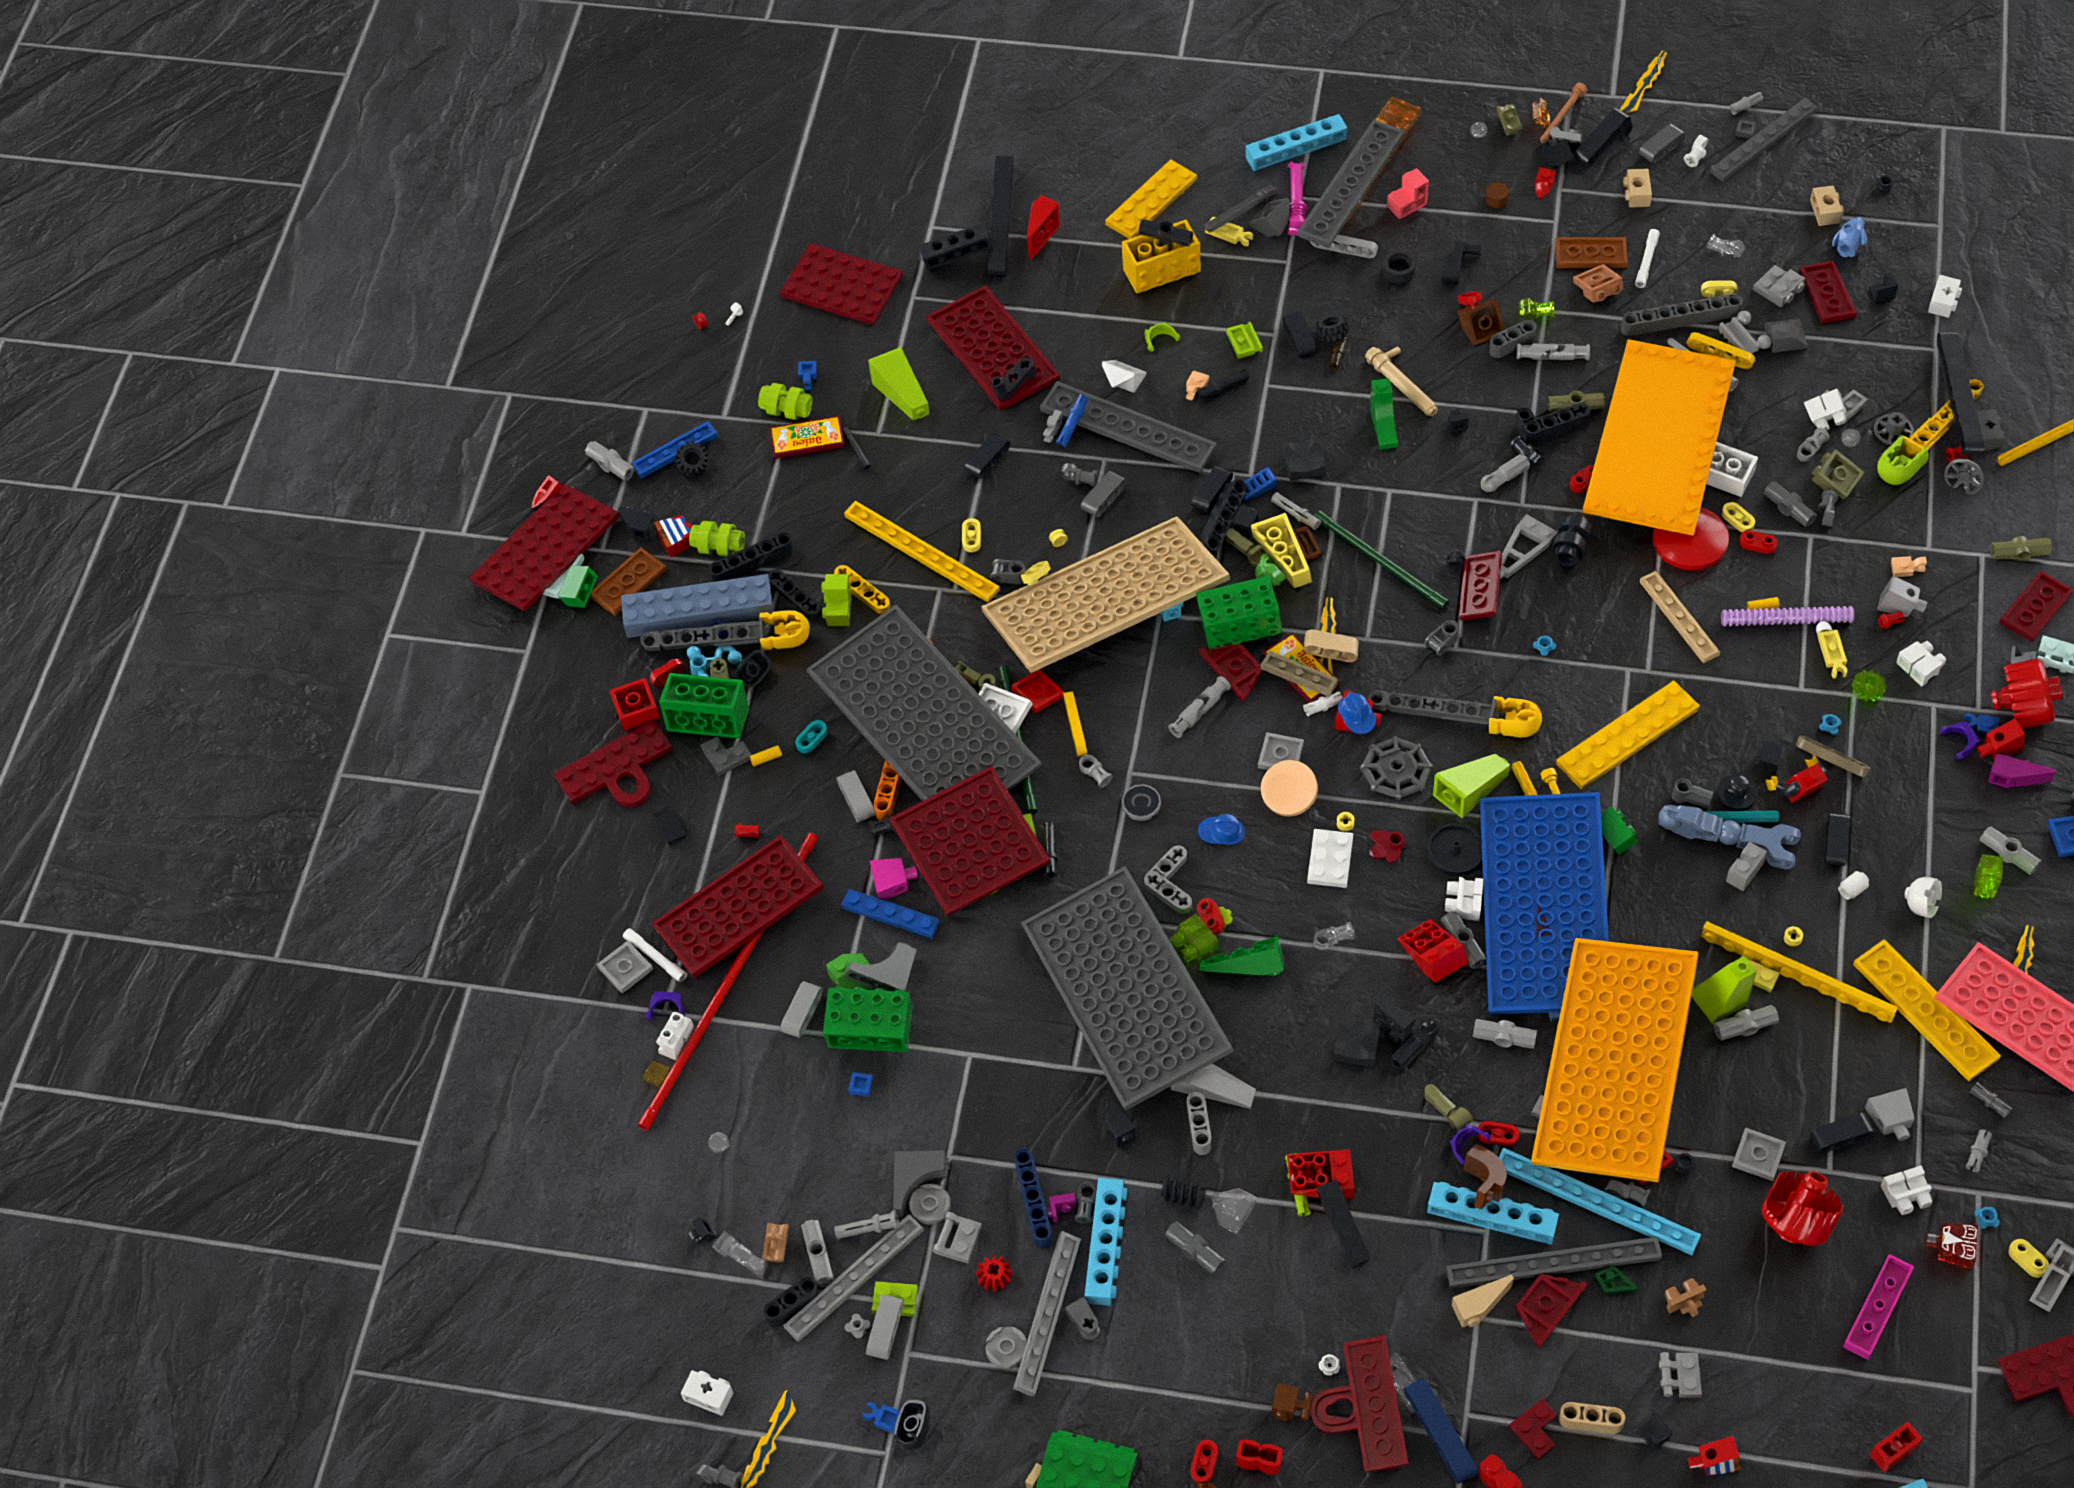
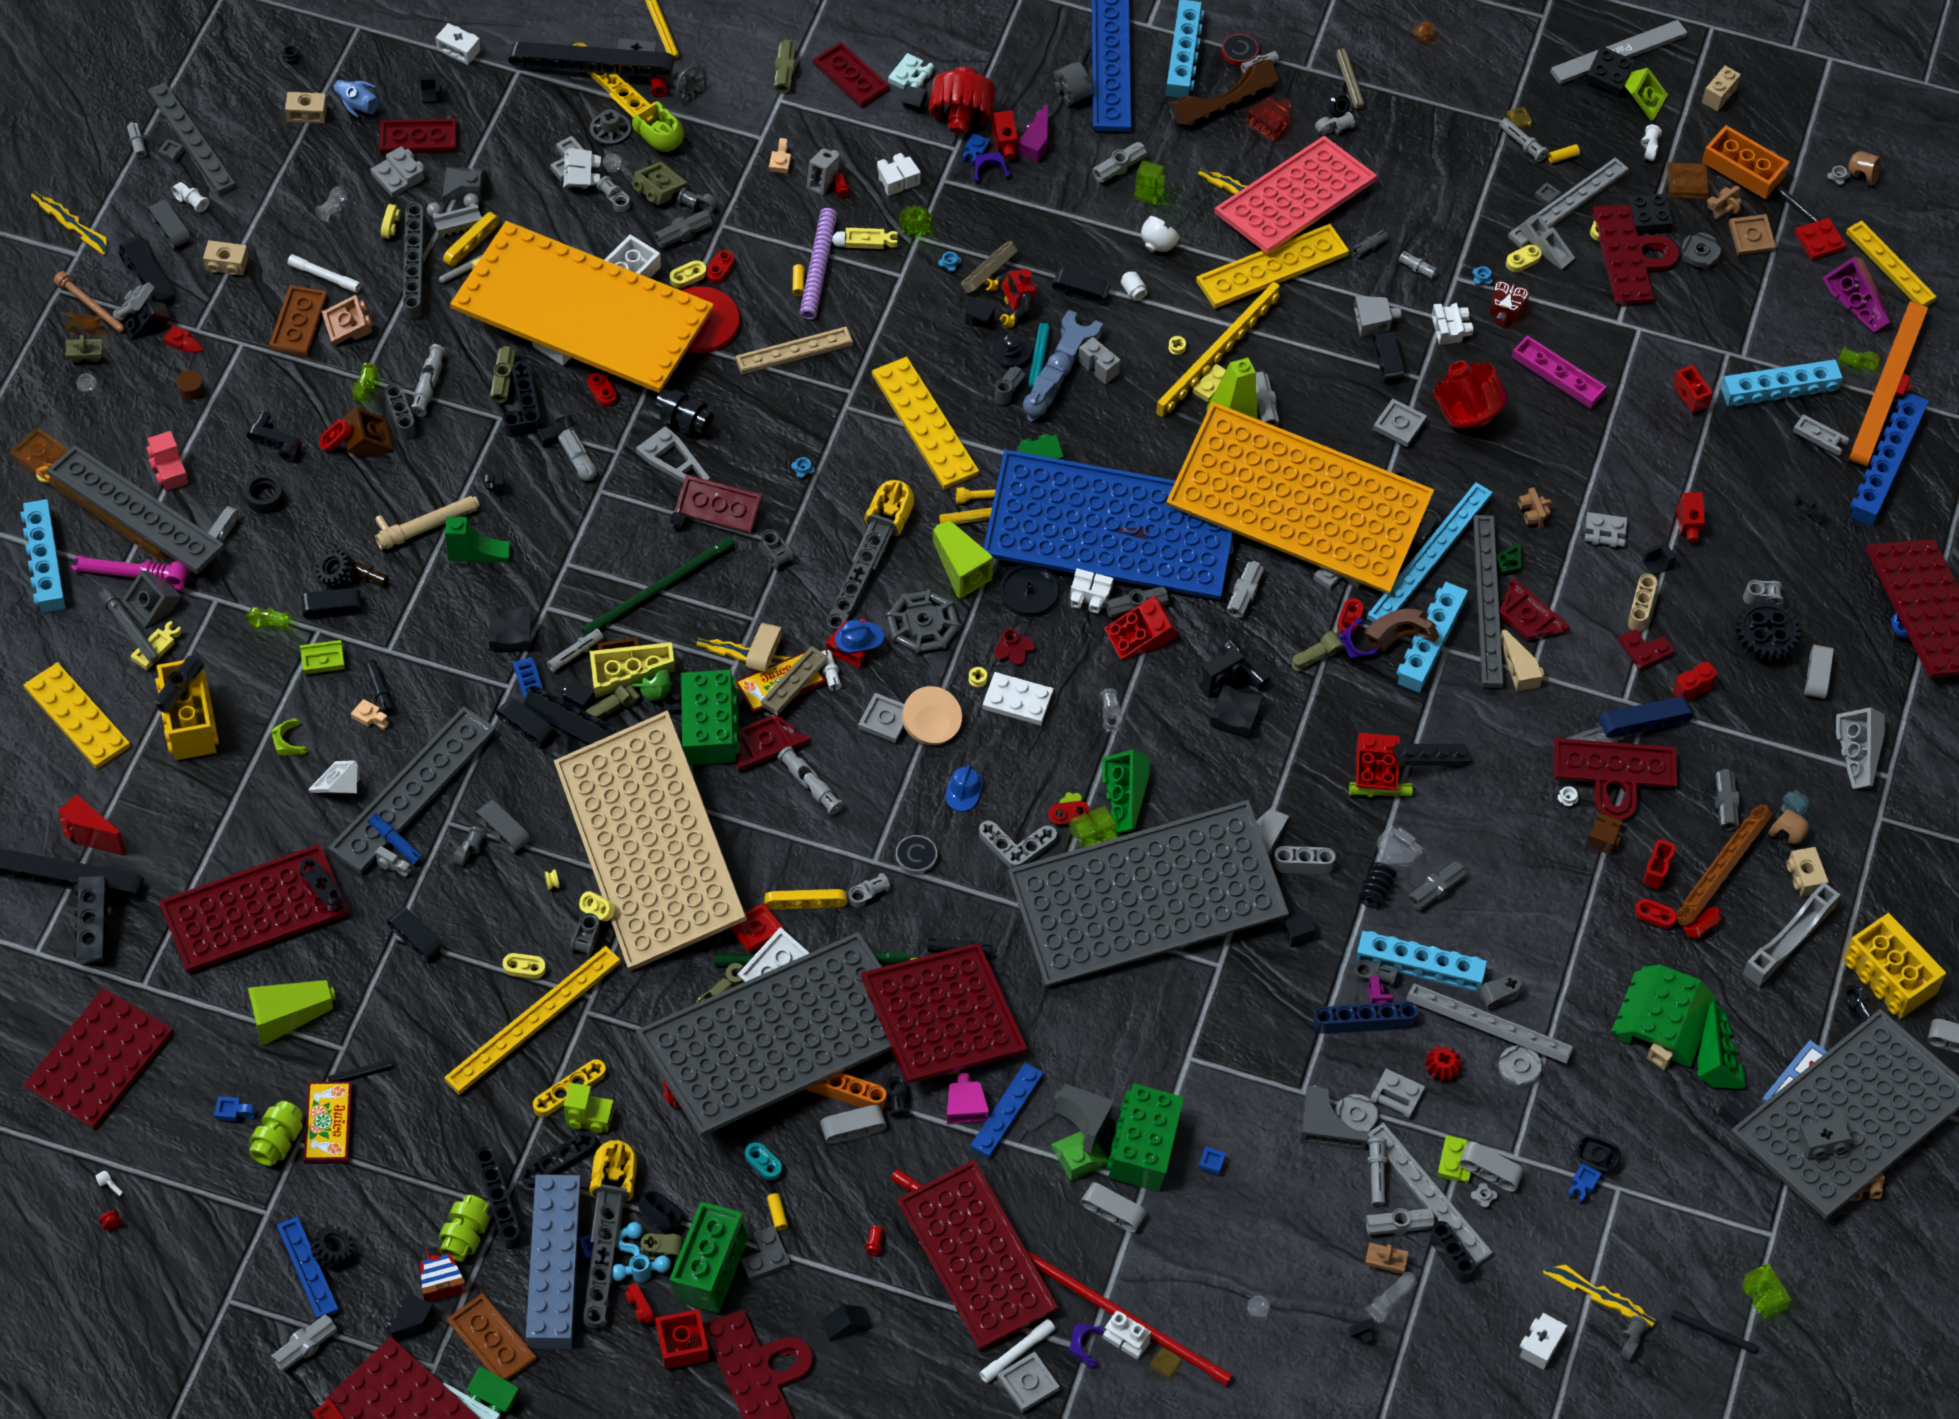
camera: 90 degrees left, 0 degrees up
(1275, 298) = (258, 617): none -> clear neon green connector

